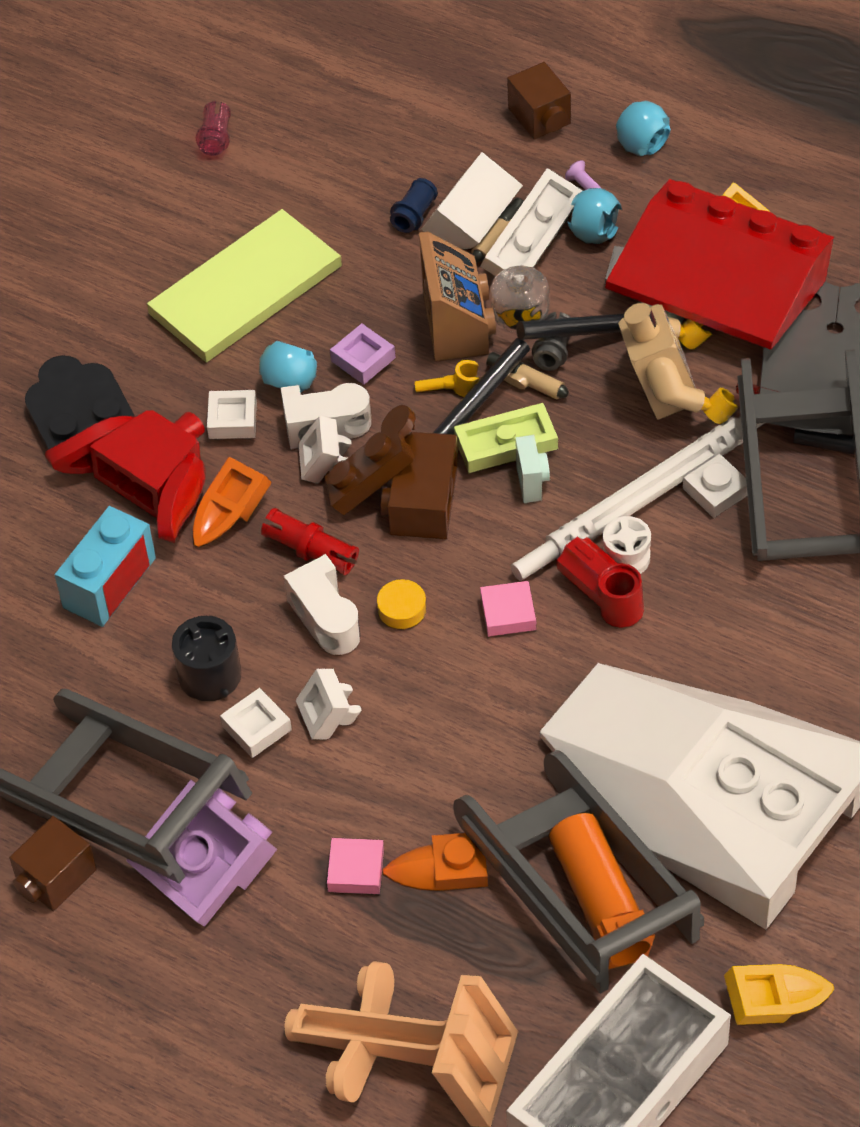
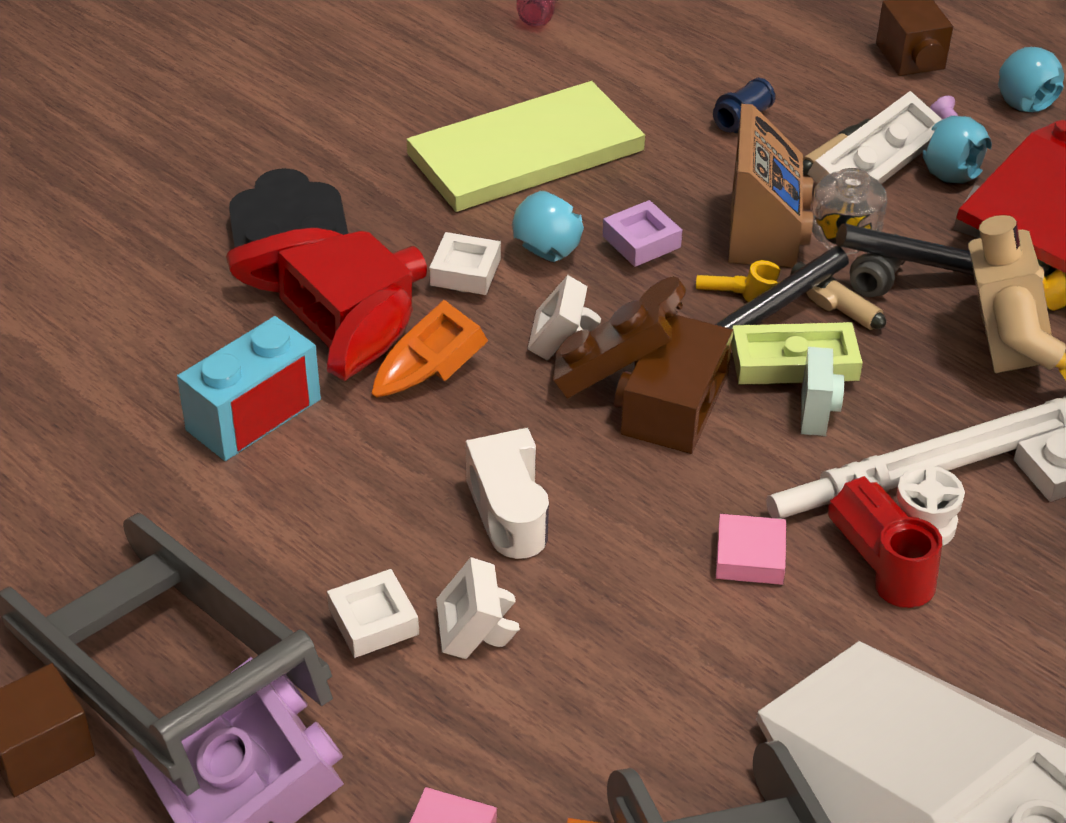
camera: 10 degrees right, 10 degrees down
(206, 658) = (335, 518): black piece -> none
(309, 540) = (515, 411): red pin -> none
(341, 404) = (607, 275): white leg -> none
(401, 604) = (611, 513): yellow tile -> none
(473, 204) = (819, 107): white brick -> none

